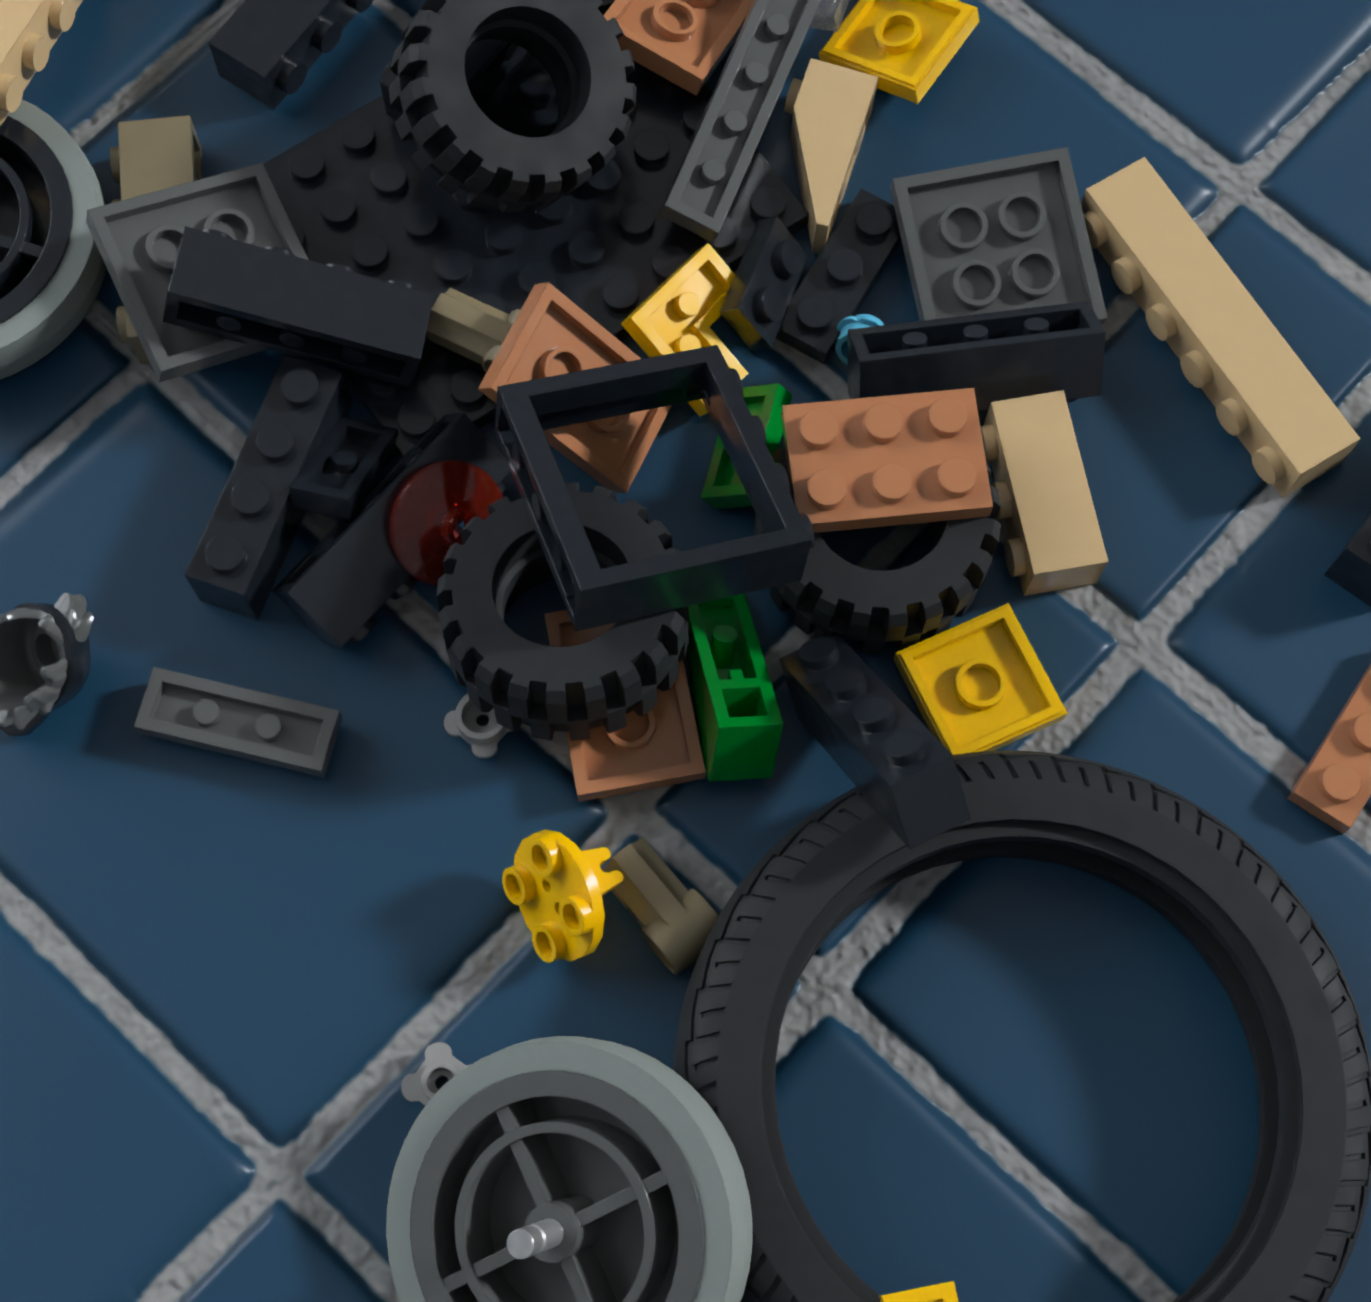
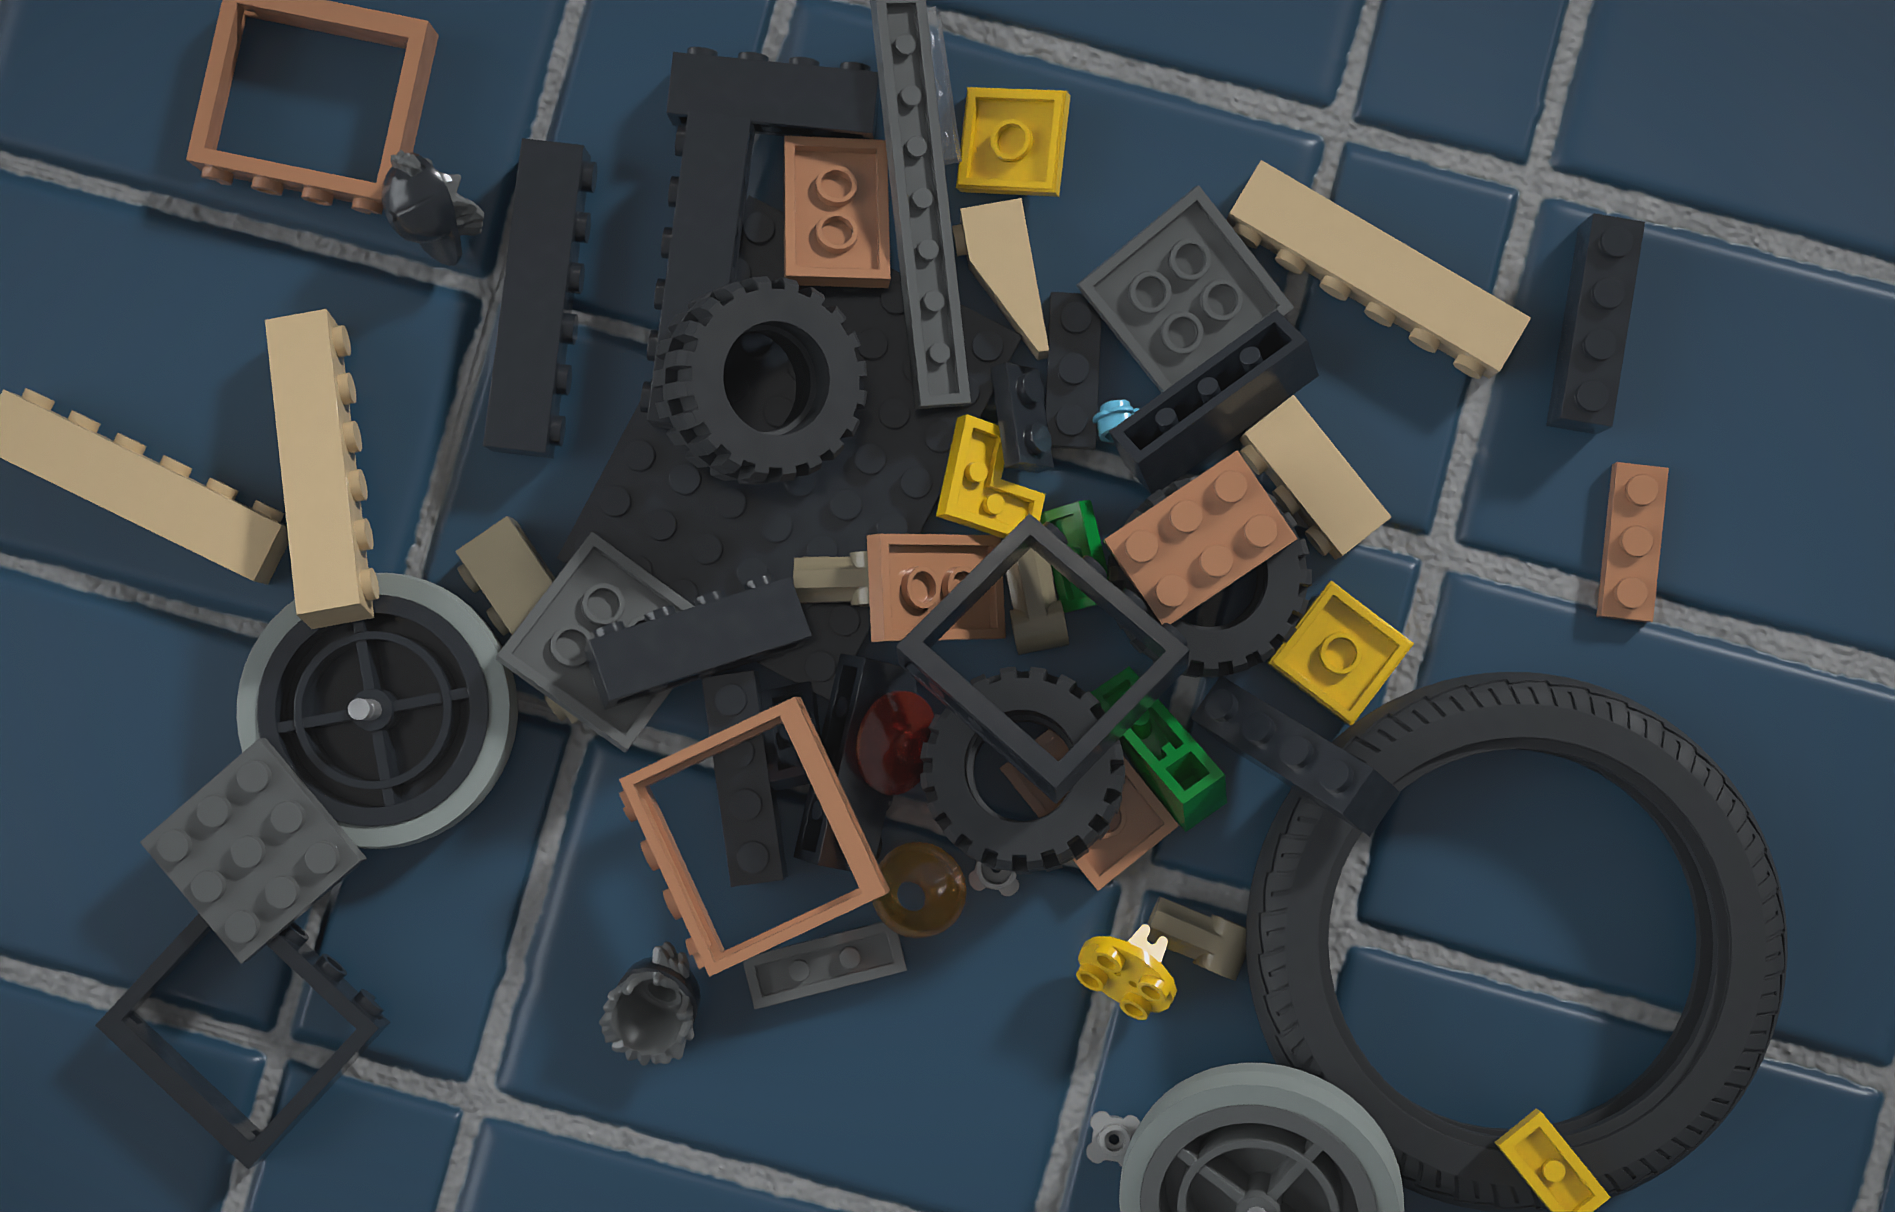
camera: 20 degrees left, 15 degrees up
(132, 493) = (664, 854): none -> nougat window
(398, 670) = (940, 881): none -> clear orange piece
(674, 478) = (1036, 613): none -> dark tan piece

